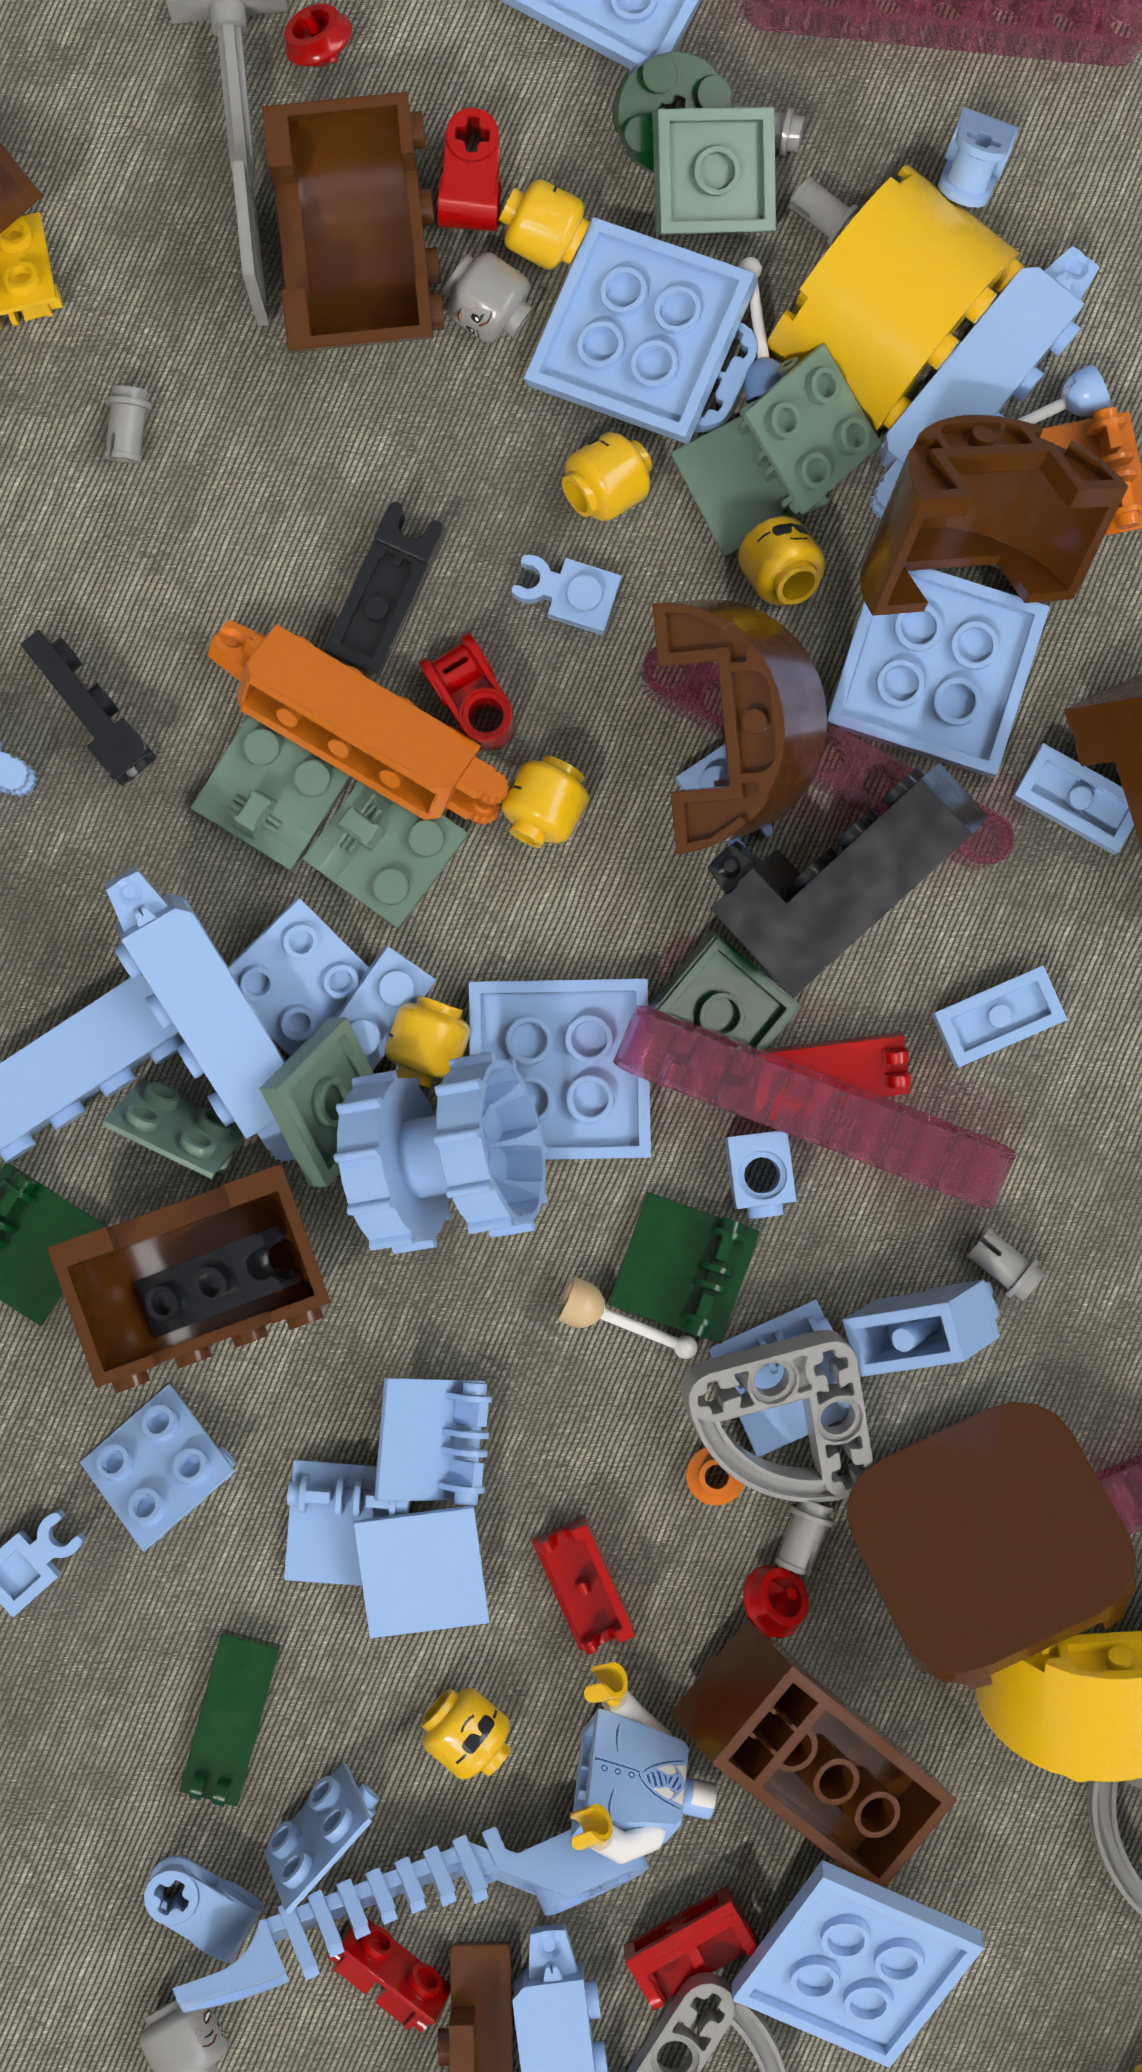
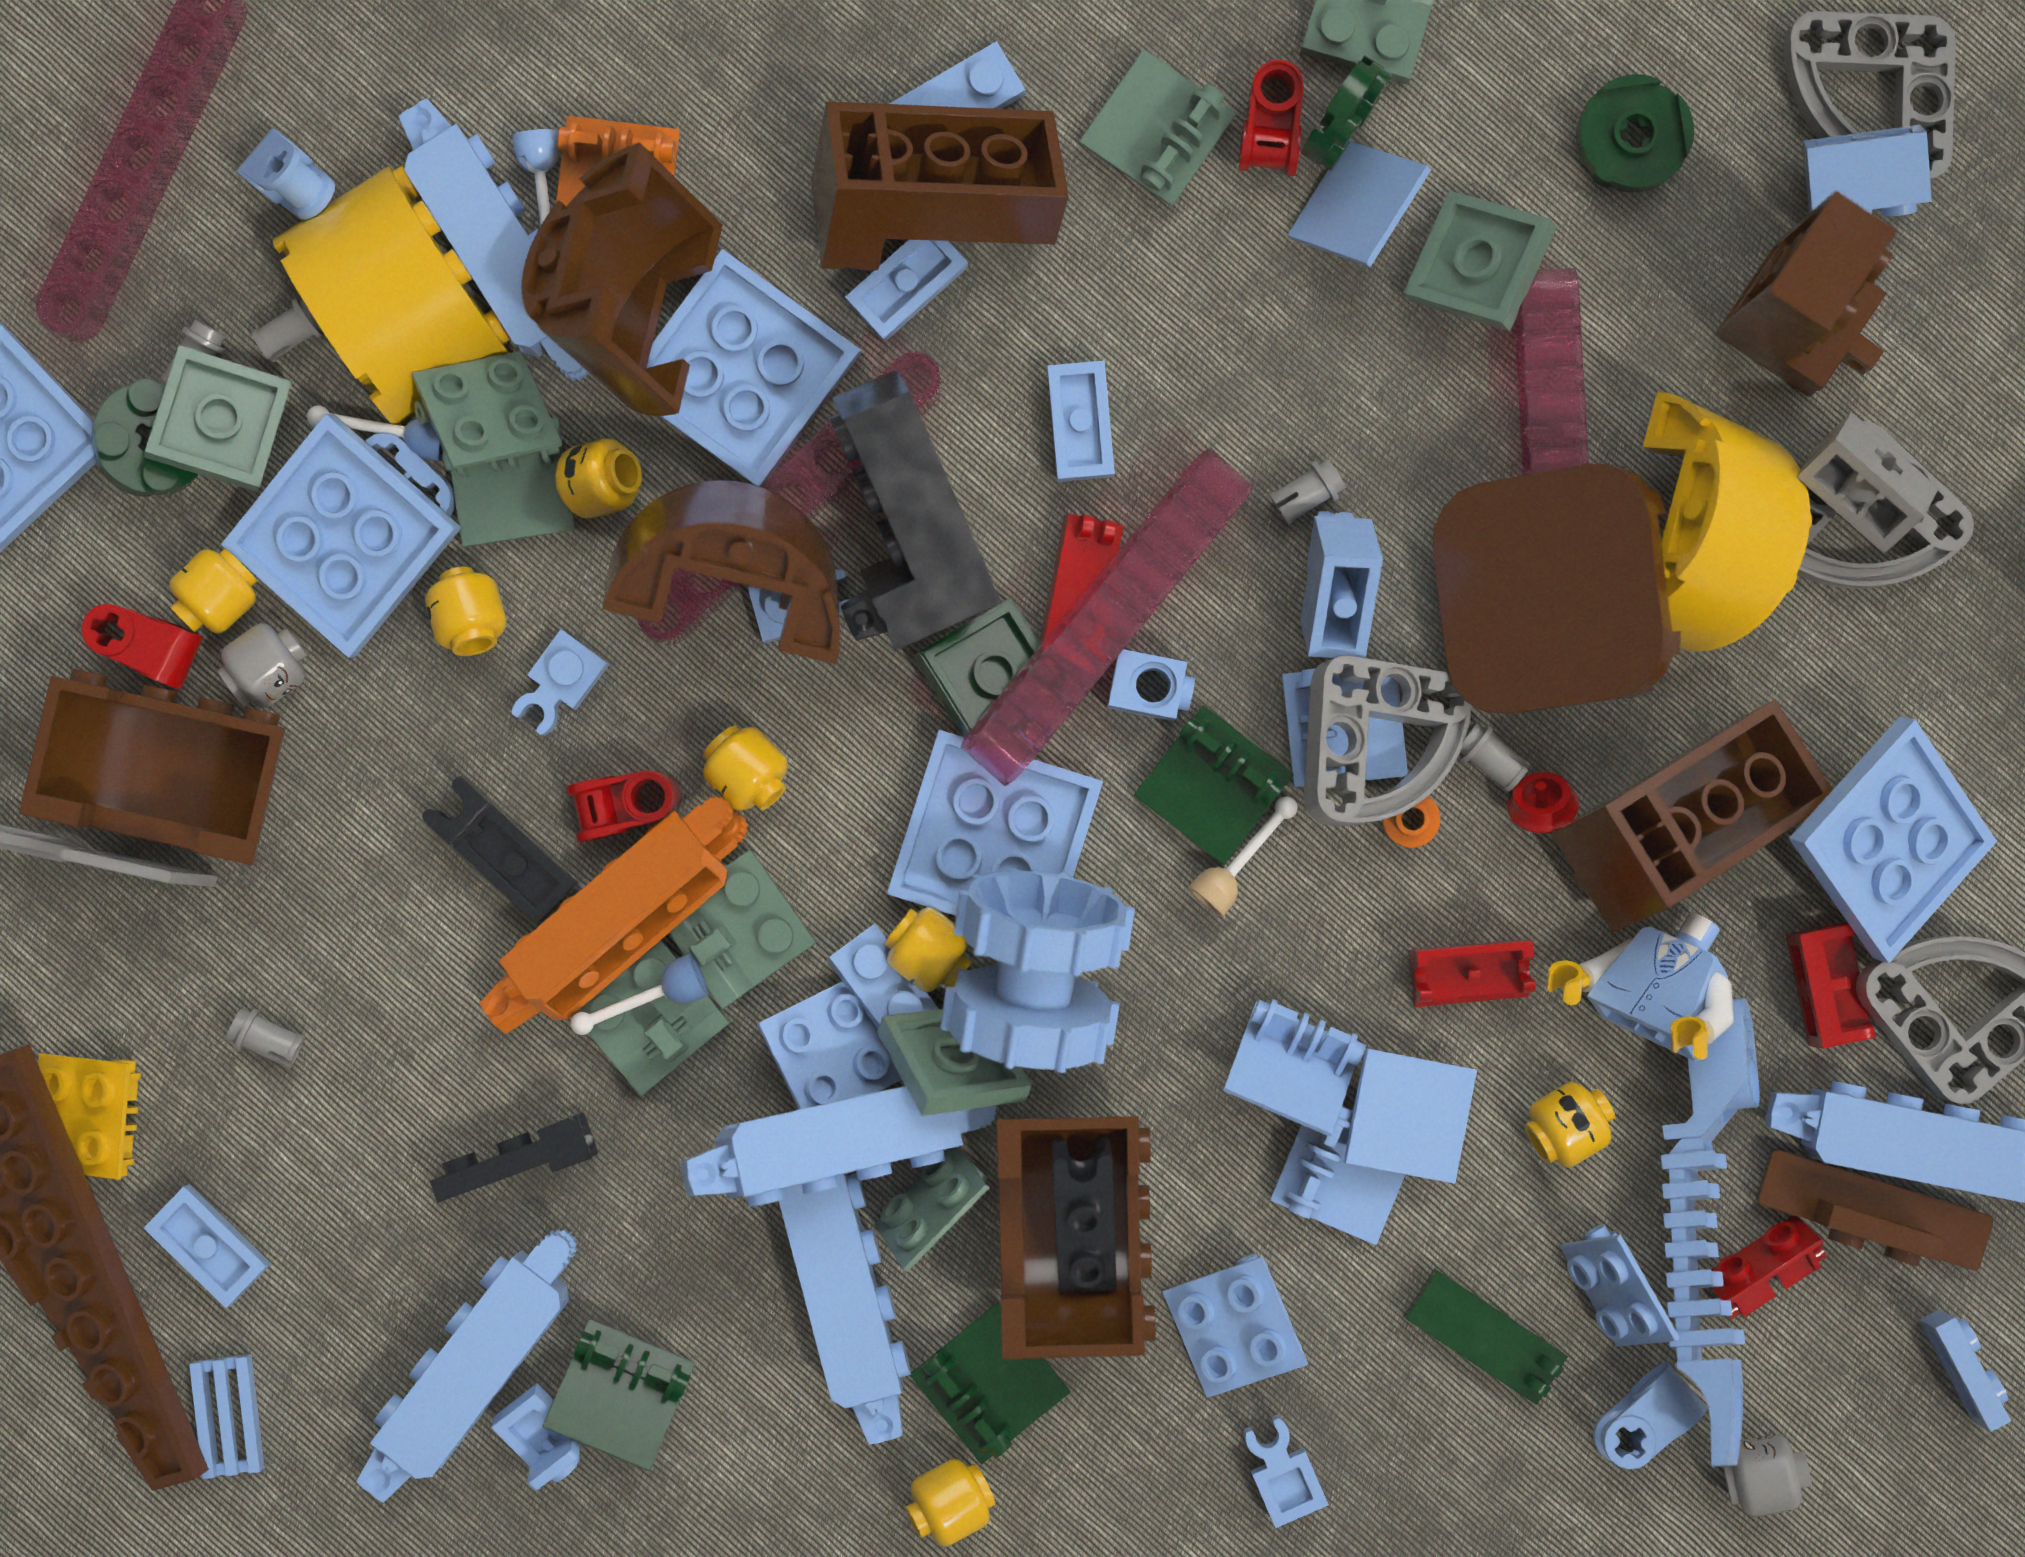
camera: 65 degrees left, 0 degrees up
(313, 808) = (680, 983): none -> hinge

